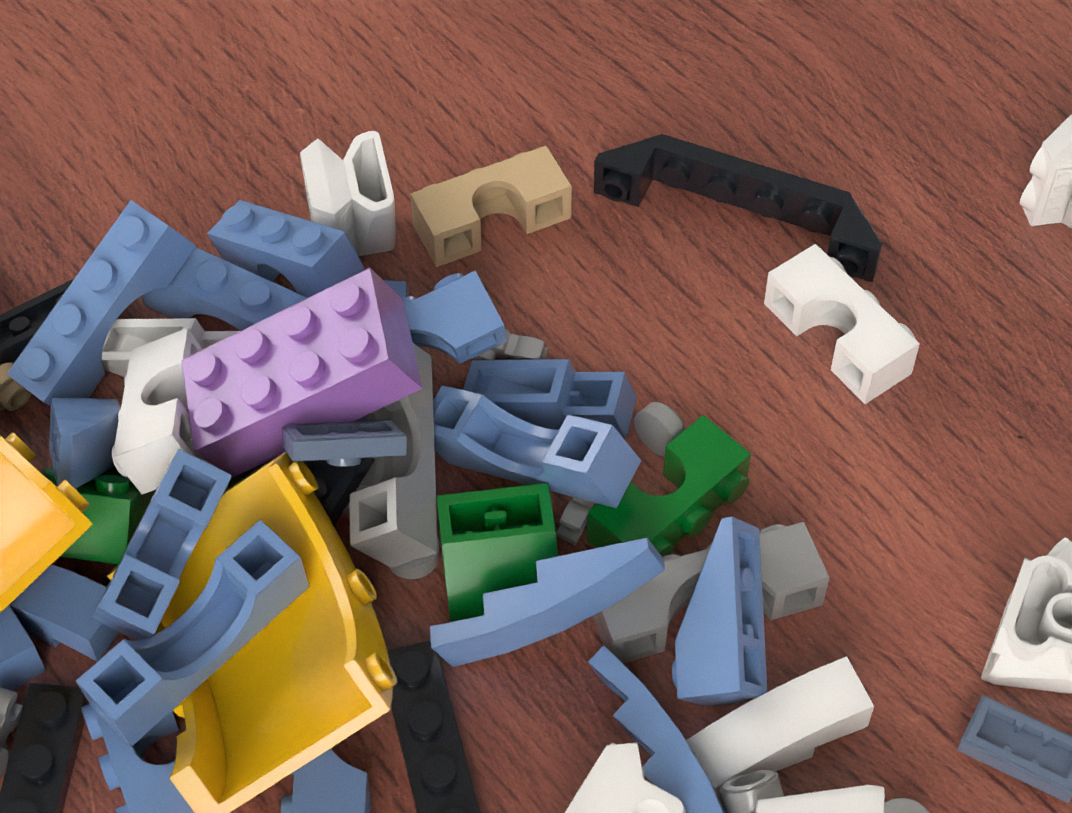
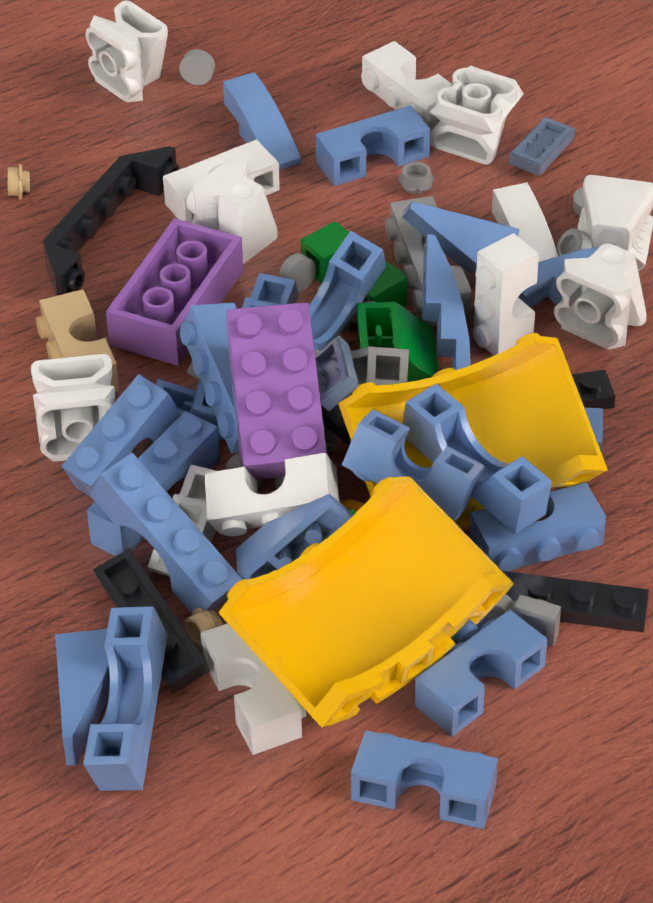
camera: 85 degrees left, 10 degrees down
(568, 667) = (501, 276): none -> white arch
(592, 287) = (181, 270): none -> medium lavender brick
(750, 331) = (235, 206): none -> white piece
(808, 107) = (18, 181): none -> tan plate
(910, 558) = (416, 178): none -> light grey plate
(946, 466) = (396, 134): none -> medium blue arch
(986, 356) = (260, 118): none -> medium blue slope

